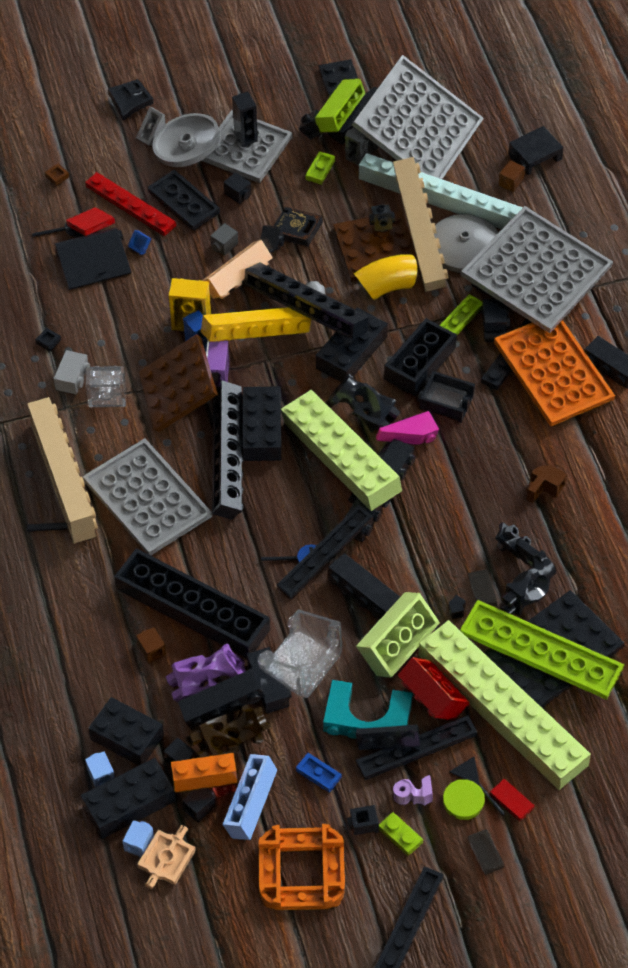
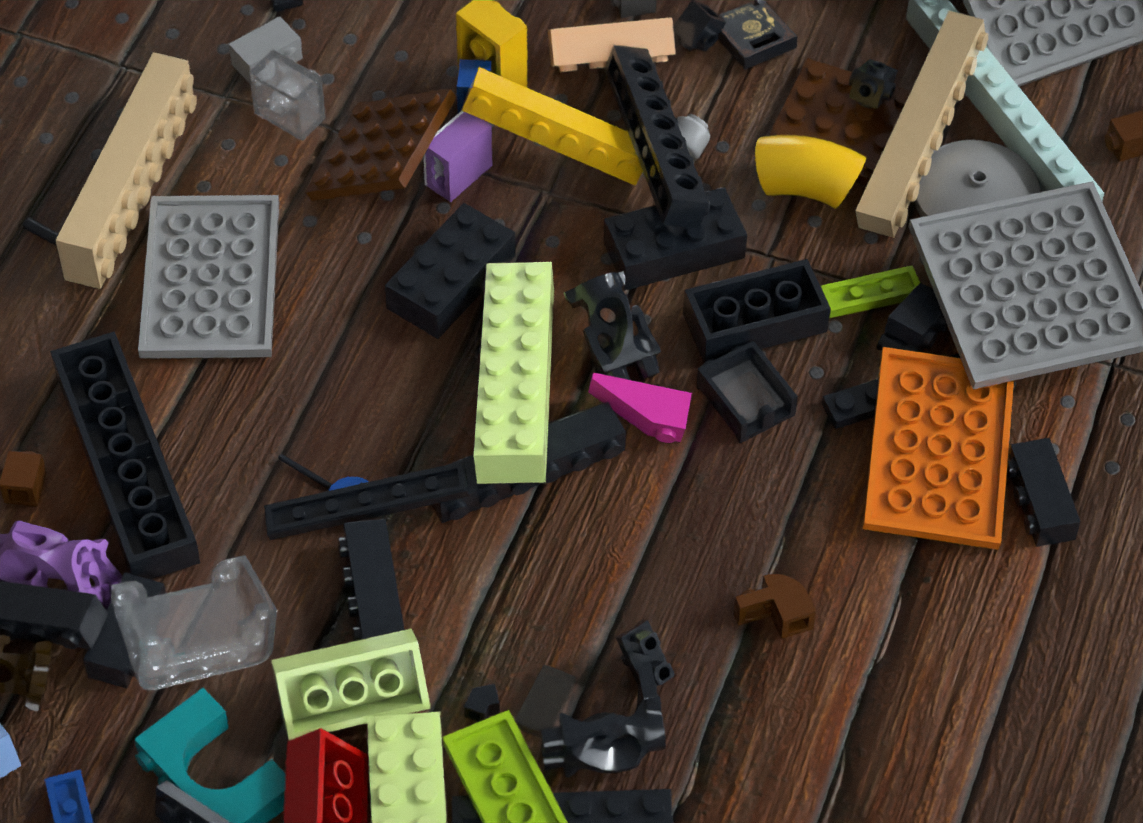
camera: 35 degrees right, 0 degrees up
(227, 451) = (294, 351): black brick -> none

